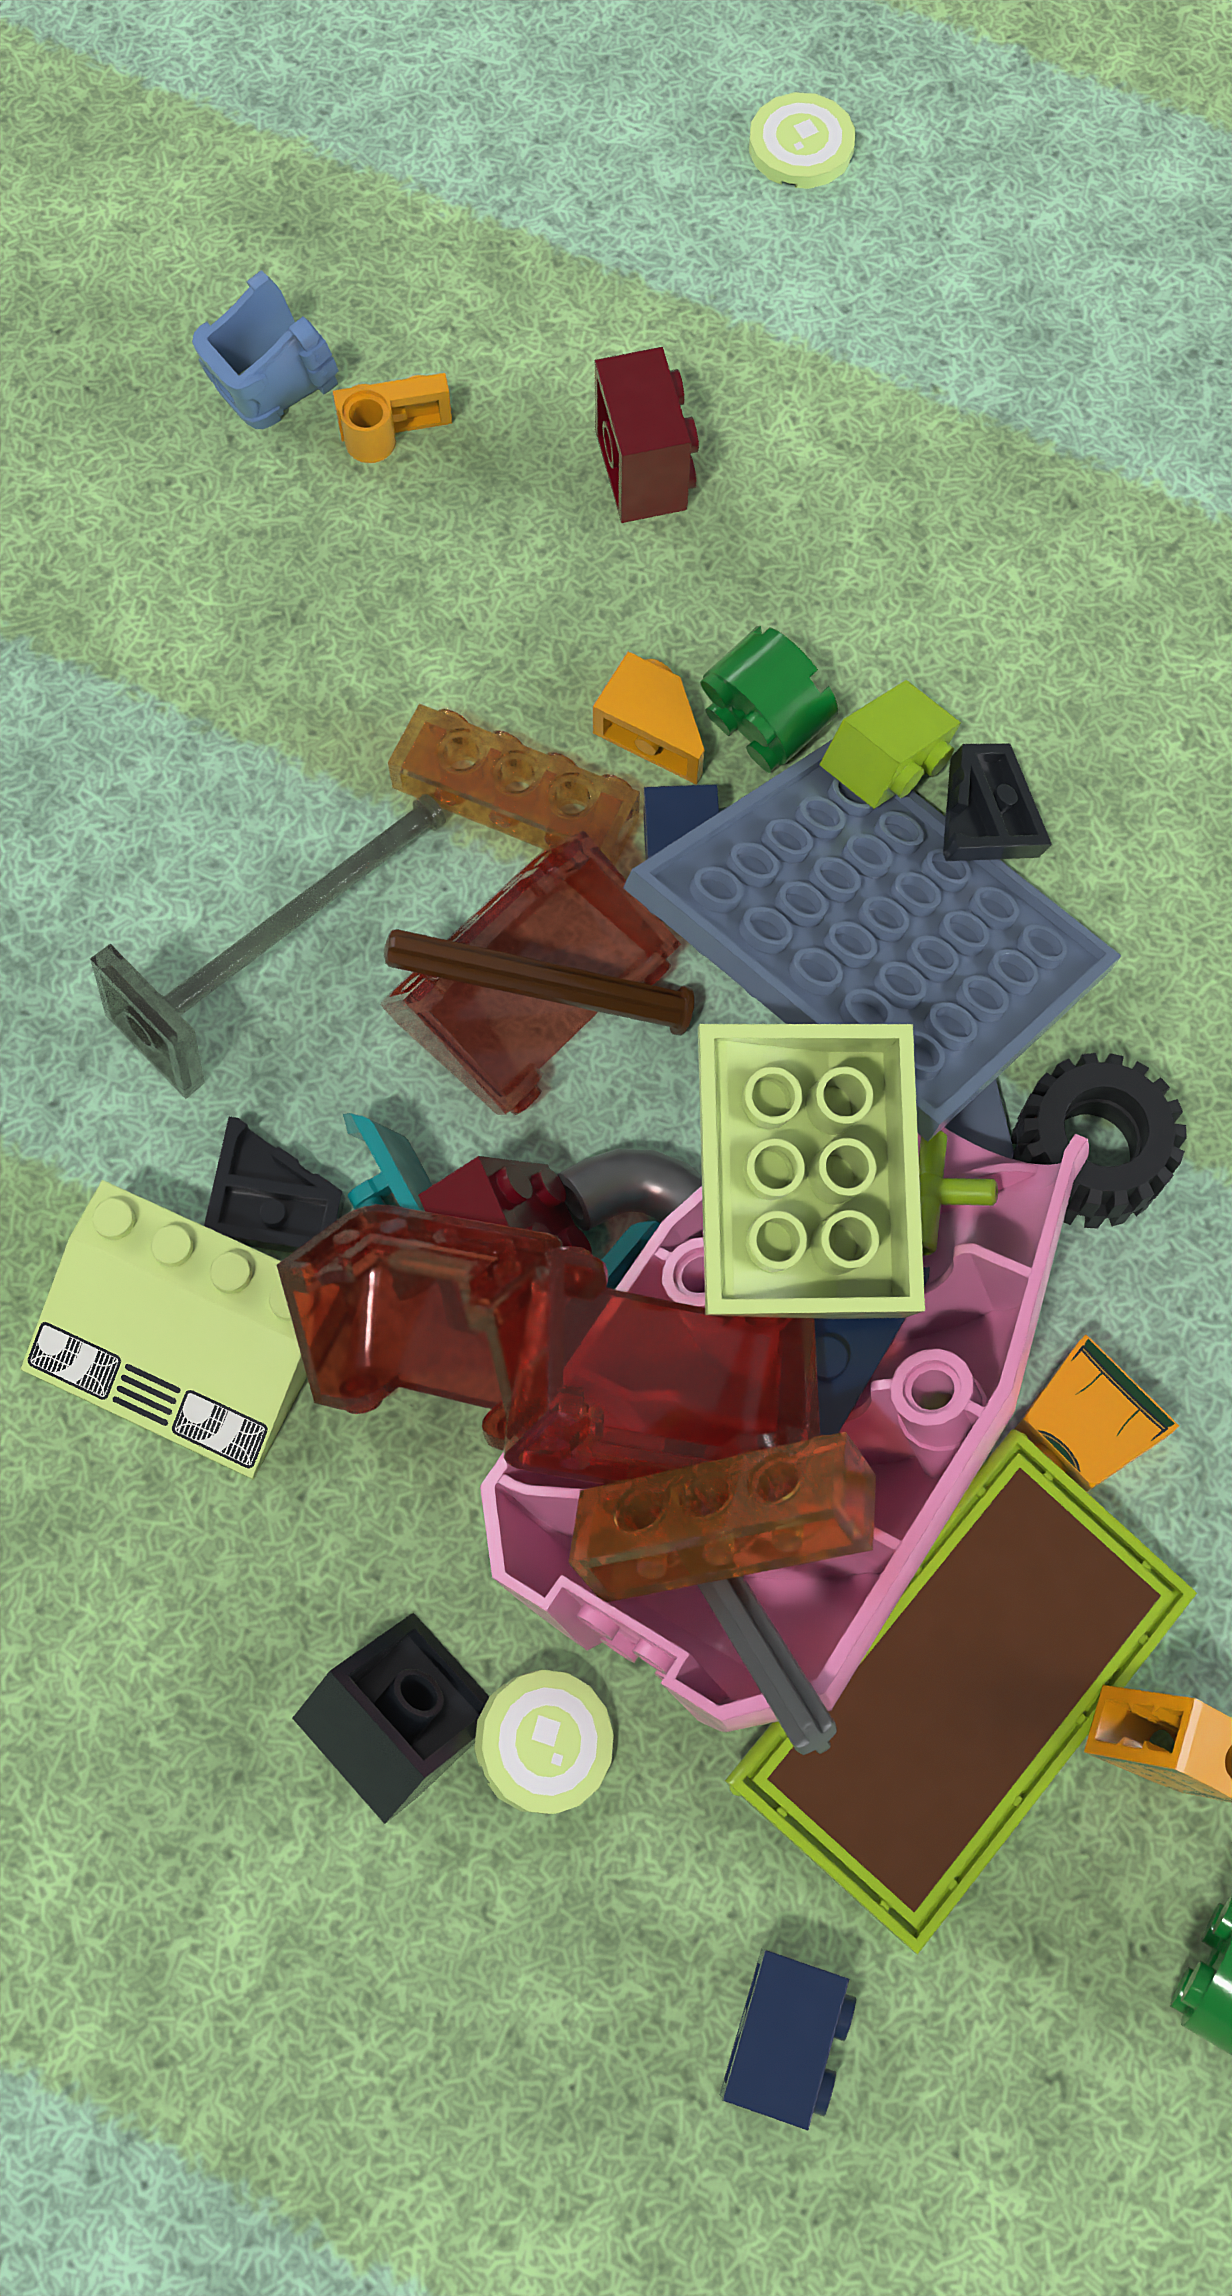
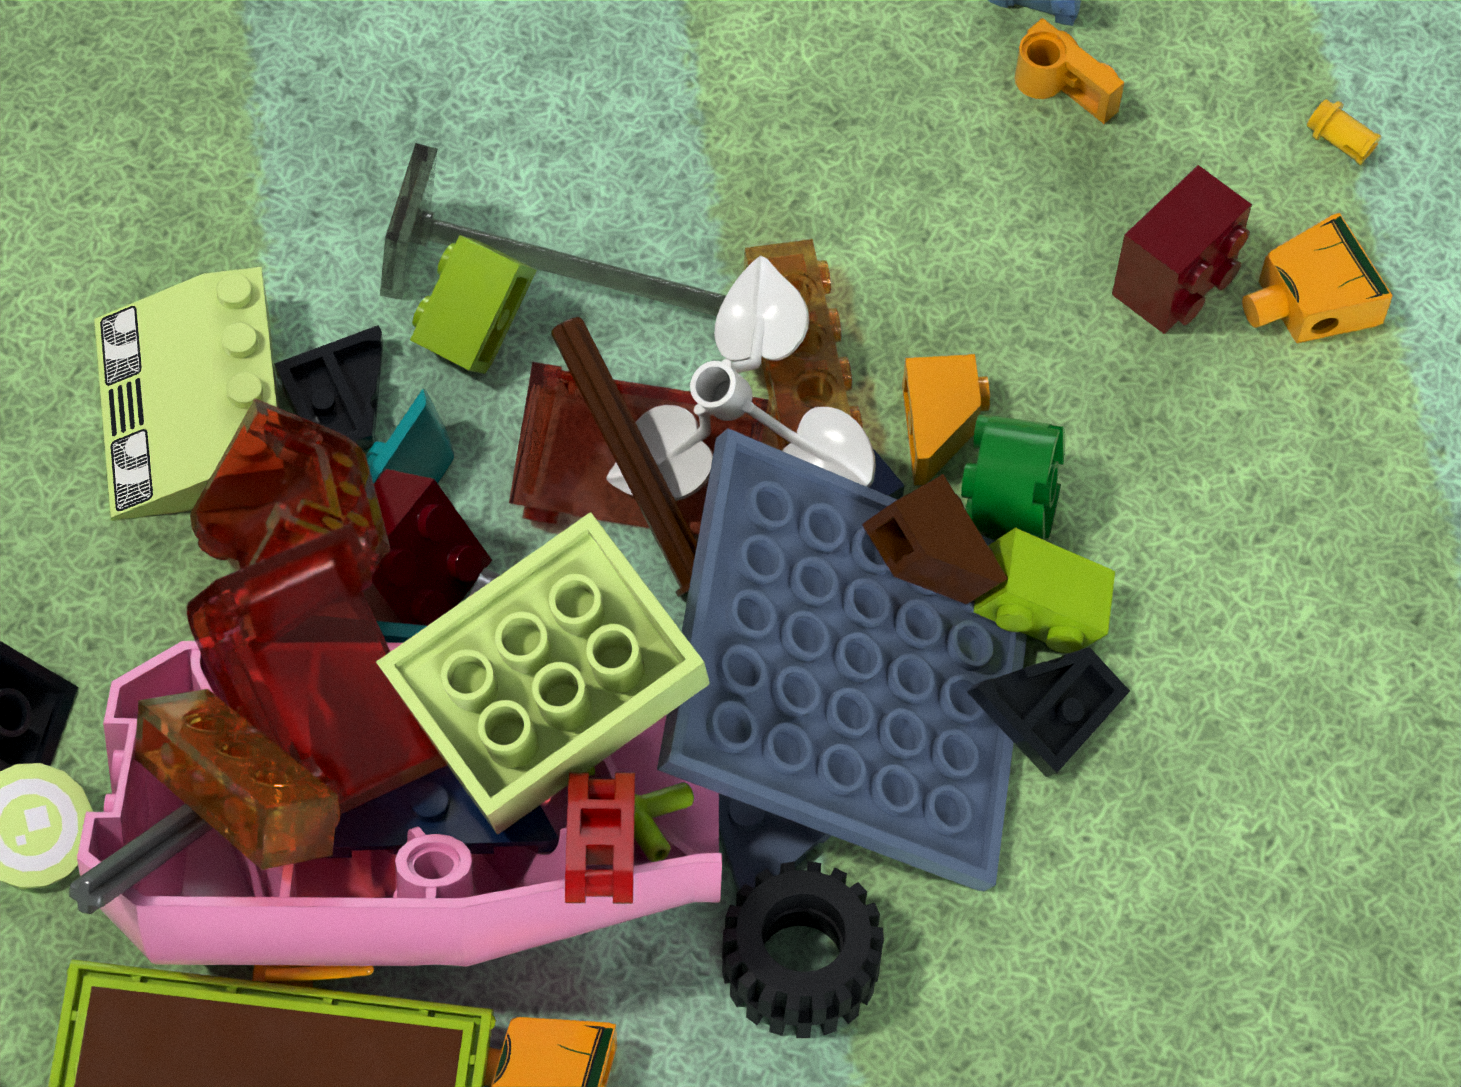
camera: 55 degrees right, 10 degrees down
(276, 1021) = (471, 304): none -> lime brick
(486, 787) = (756, 320): none -> white plant
(598, 258) = (1343, 131): none -> yellow pin
(734, 365) = (1319, 285): none -> light orange torso
(814, 786) = (935, 543): none -> reddish brown slope
(1009, 1222) = (600, 834): none -> red plate

